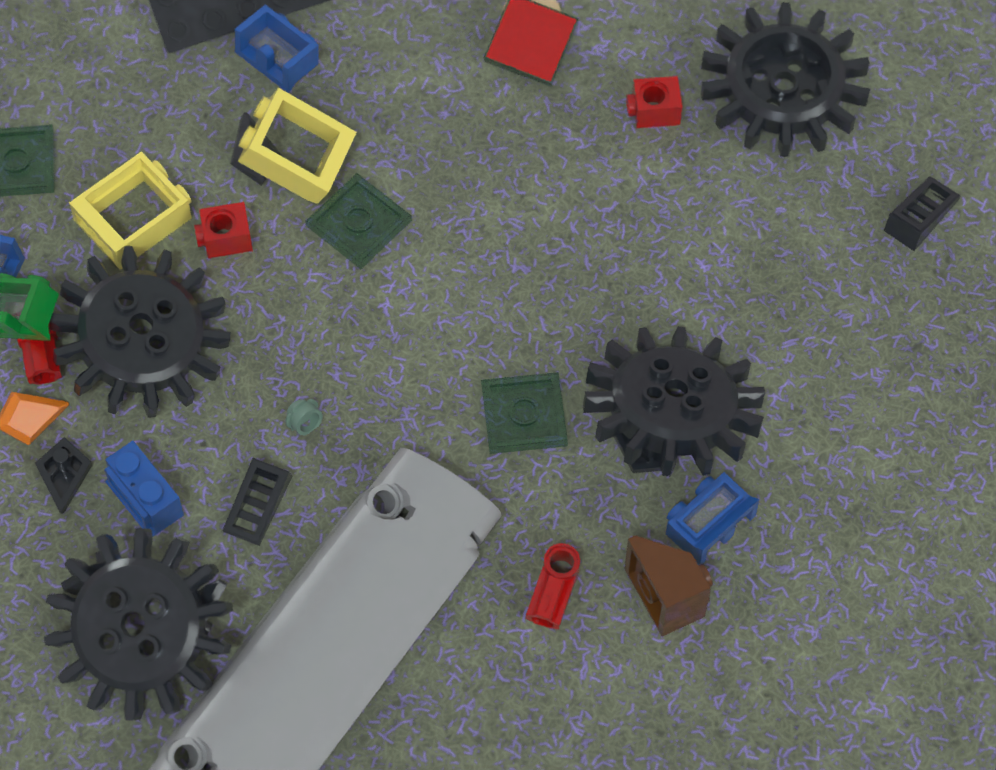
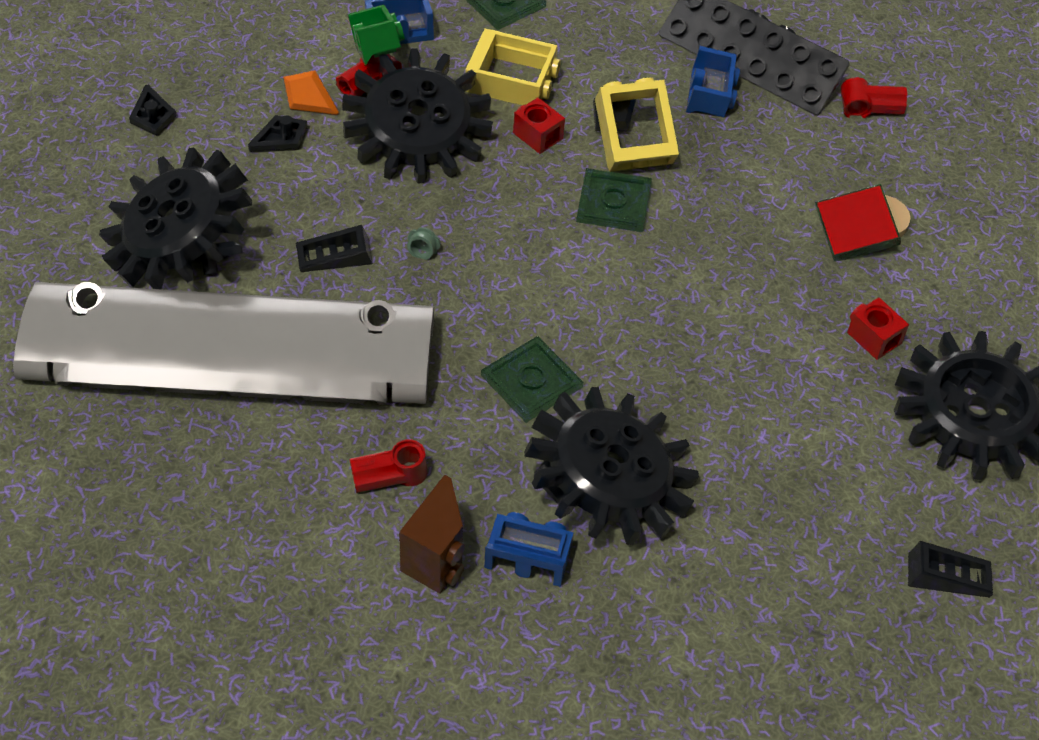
camera: 55 degrees right, 10 degrees down
(142, 489) = (287, 176): blue window -> none

